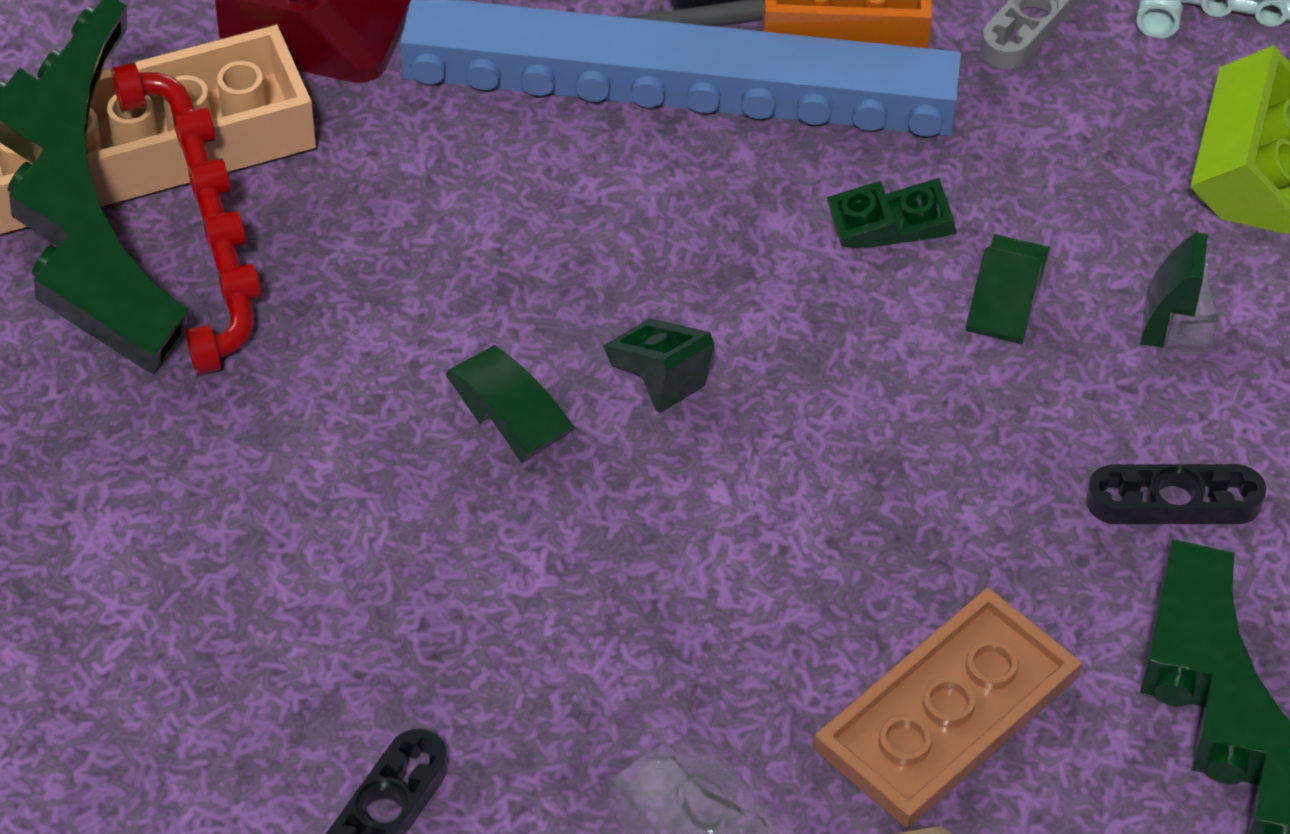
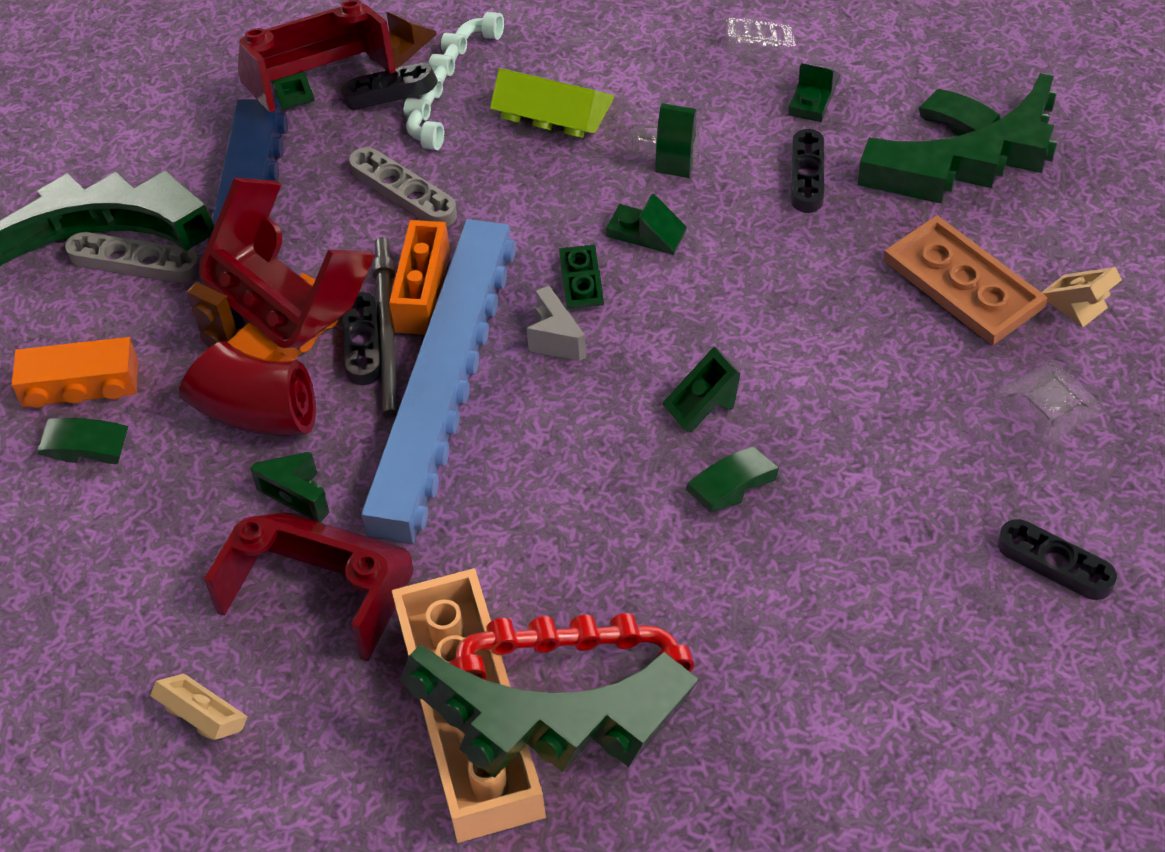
camera: 80 degrees left, 0 degrees up
(776, 189) = (555, 329): none -> light grey slope

